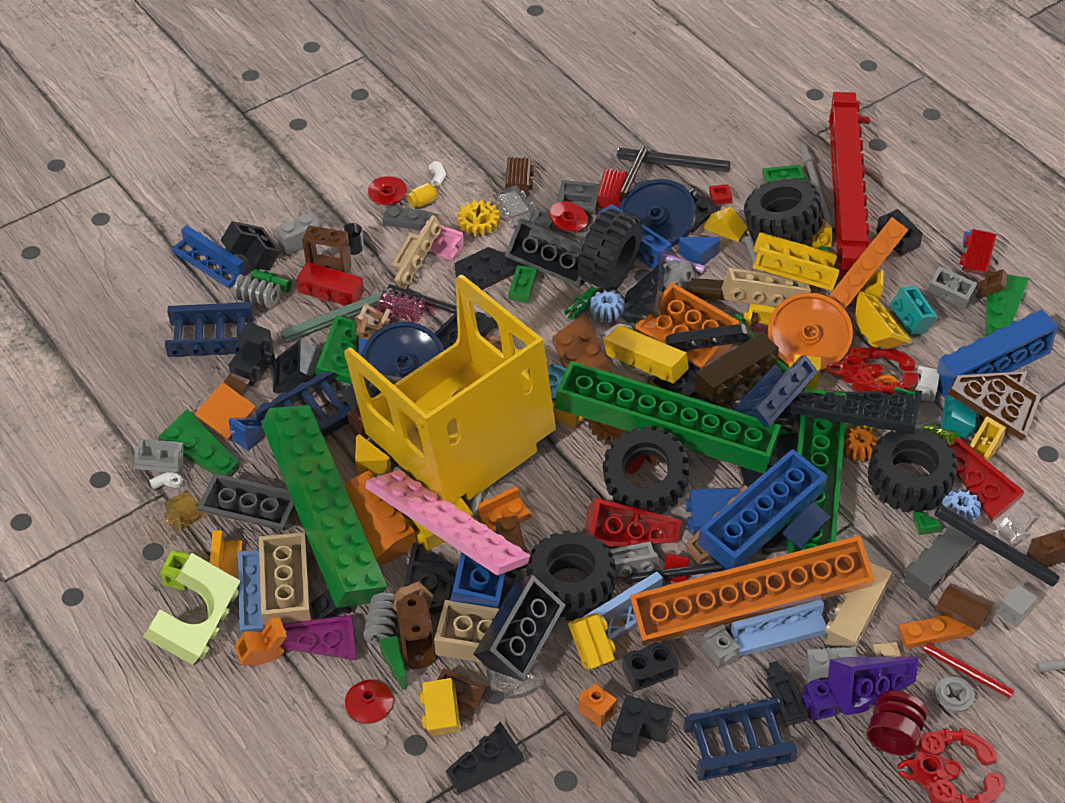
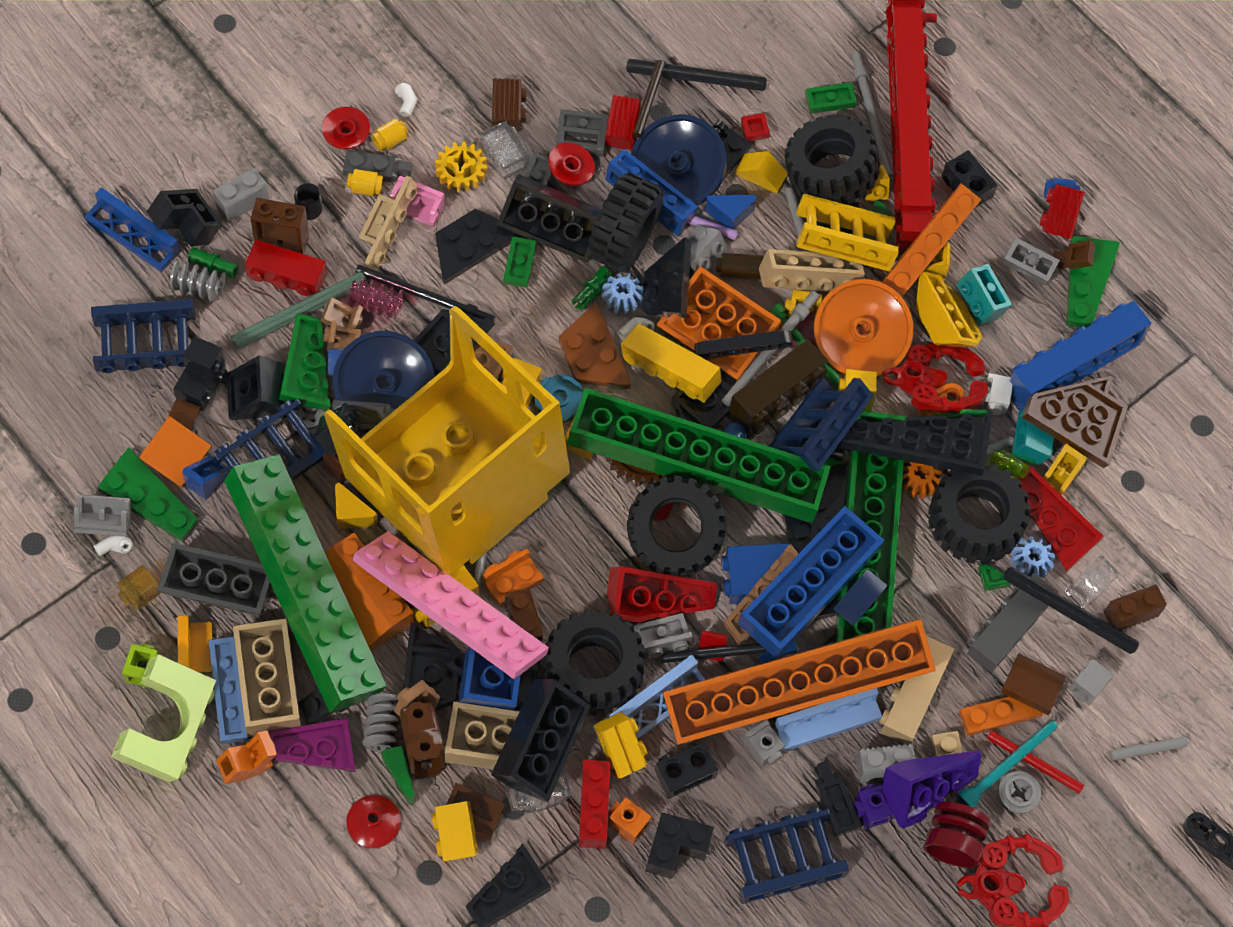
camera: 10 degrees left, 15 degrees up
(399, 227) = (365, 182): none -> yellow brick
(566, 690) = (594, 804): none -> red brick
(754, 320) = (799, 313): none -> light grey bar
(946, 666) = (972, 795): none -> teal piece

